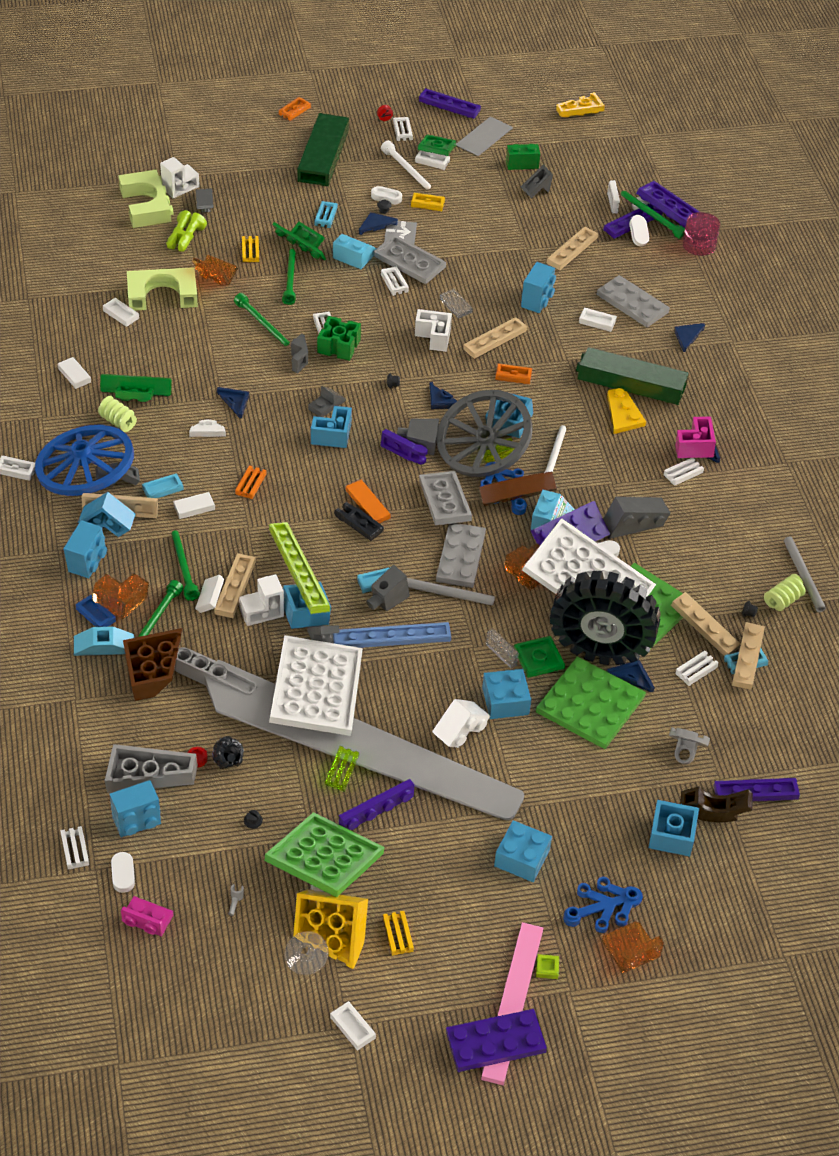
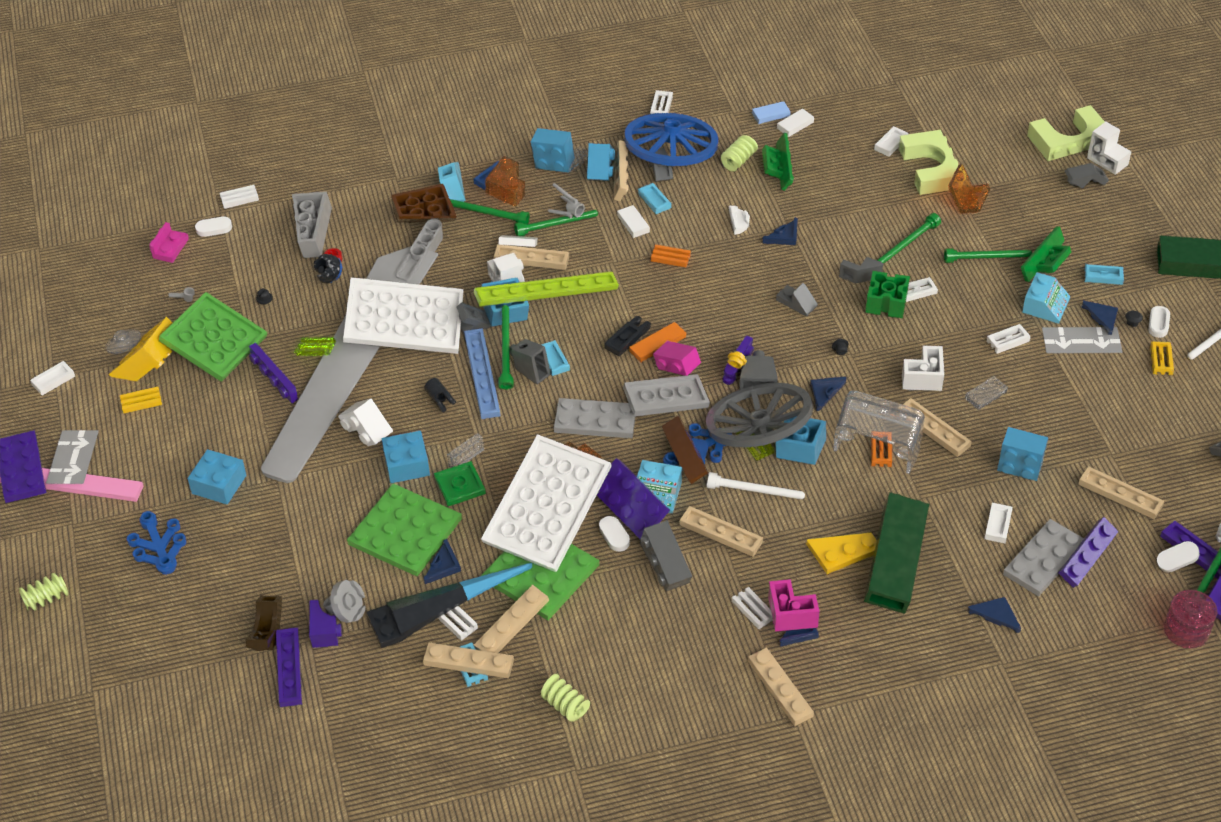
camera: 90 degrees right, 0 degrees up
(53, 387) = (771, 112): none -> light blue tile
(135, 808) = (264, 217): dark azure brick -> none
(174, 542) = (573, 206): none -> light grey plant
(182, 237) = (1020, 165): lime piece -> none
(250, 241) = (1021, 221): yellow tile -> none
(333, 430) = (749, 304): dark azure brick -> none
(402, 484) = (677, 358): none -> dark pink brick
(408, 613) = (505, 380): none -> green piece
(409, 259) = (1046, 346): light grey plate -> none
(417, 438) = (736, 359): none -> yellow plate
(420, 667) = (438, 393): none -> black hinge
(450, 591) = (544, 405): light grey piece -> none
(479, 993) = (72, 457): none -> light grey sticker
(510, 355) = (881, 421): none -> clear windscreen
(547, 966) = (97, 504): lime tile -> none
(604, 479) = (721, 531): none -> tan plate
(611, 603) = (471, 502): black wheel -> none
(632, 946) = (107, 563): clear orange bracket -> none
(635, 277) = (1088, 552): none -> plate
(672, 1001) = (43, 591): none -> yellowish green piece
(673, 828) = (235, 589): dark azure brick -> none
(696, 700) = (411, 613): none -> black plate
(712, 764) = (323, 627): none -> dark purple arch
(749, 609) = (541, 666): black piece -> none
(761, 464) = (780, 686): none -> tan plate
(804, 574) = (604, 724): light grey piece -> none

